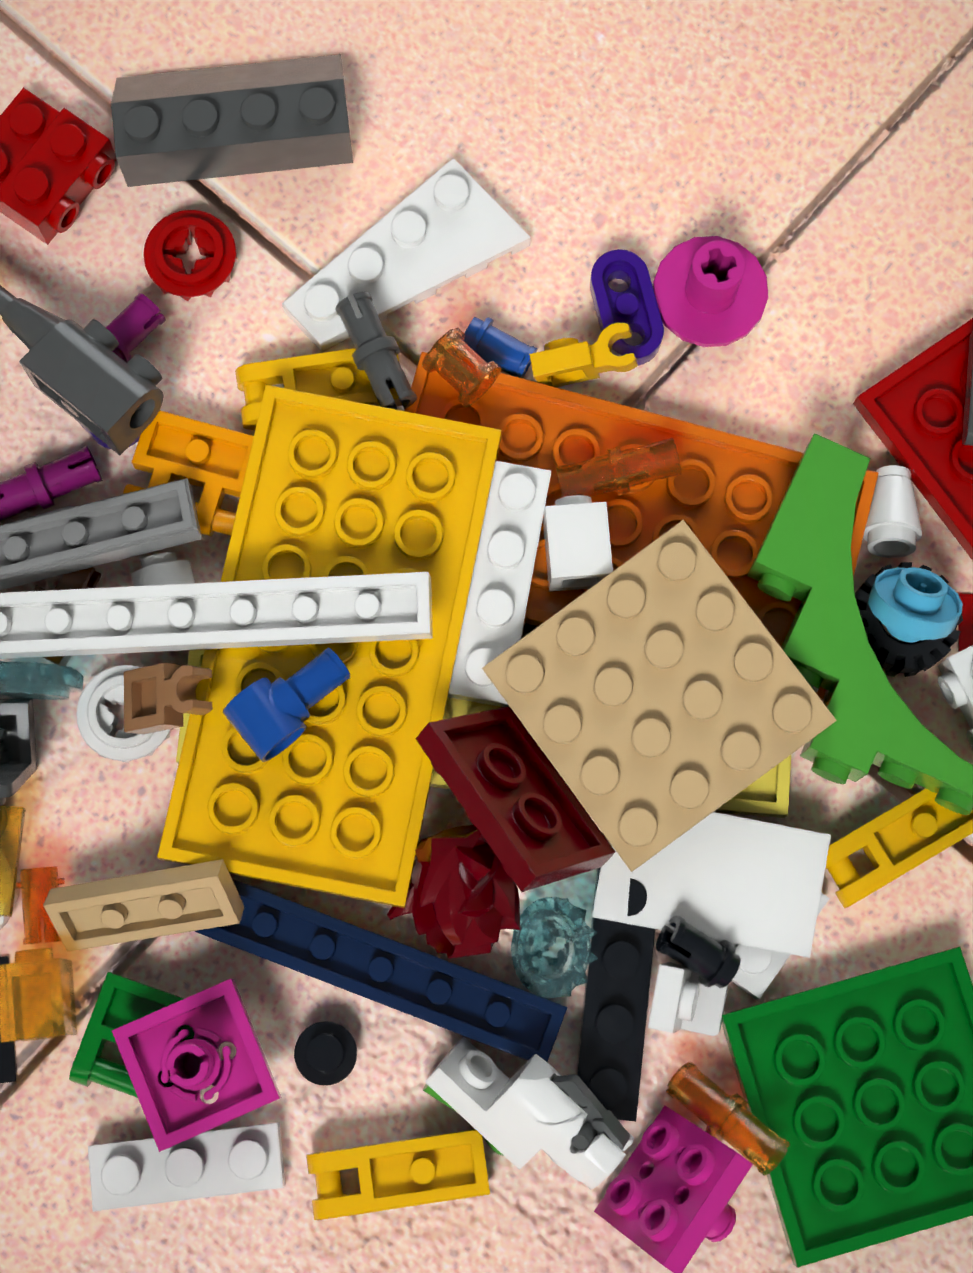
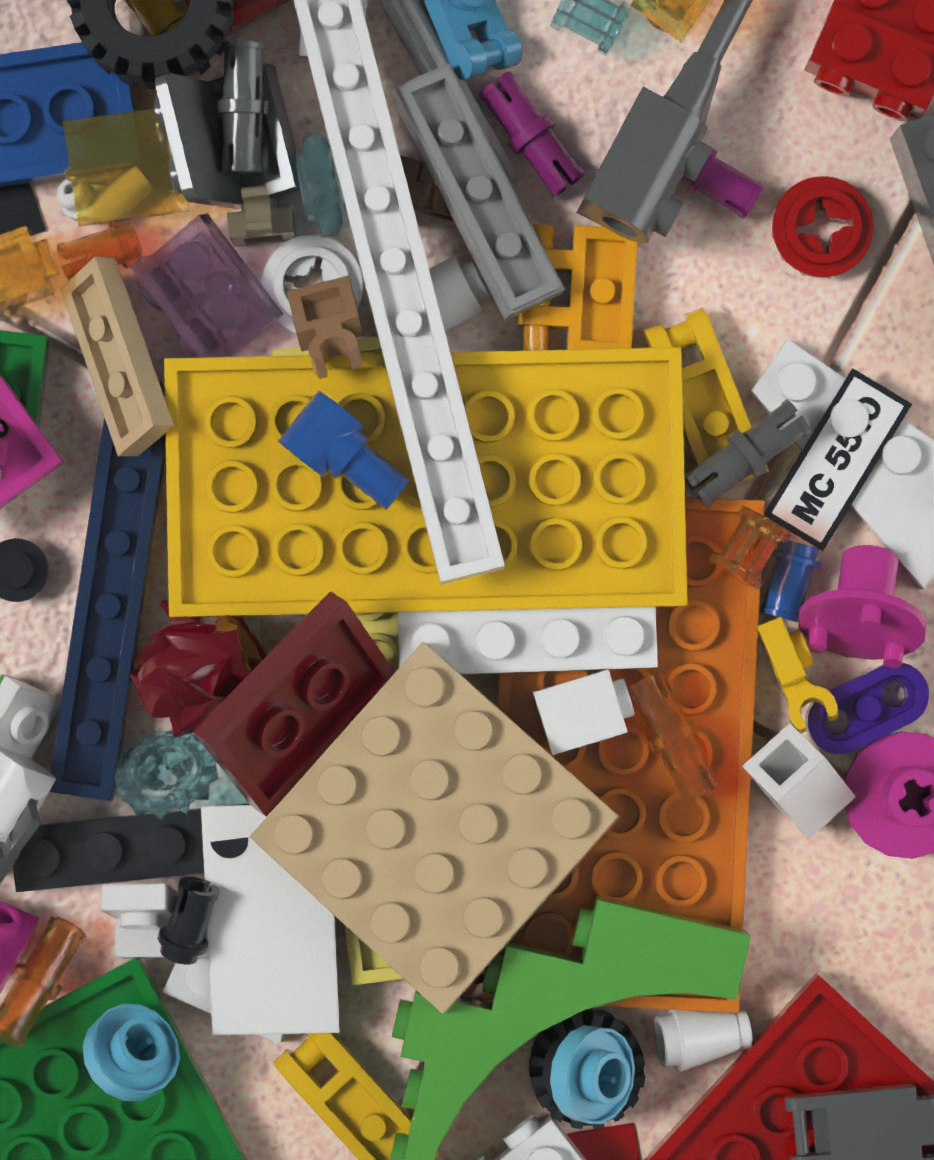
camera: 80 degrees right, 10 degrees up
(50, 744) = (260, 219): none -> dark tan plate
(104, 810) = (206, 291): none -> clear purple bracket
(405, 287) = (835, 466): none -> sticker
(542, 285) = (864, 614): none -> dark pink piece
(680, 373) = (799, 781): none -> white brick
(815, 1034) = (131, 1052): none -> medium azure plate

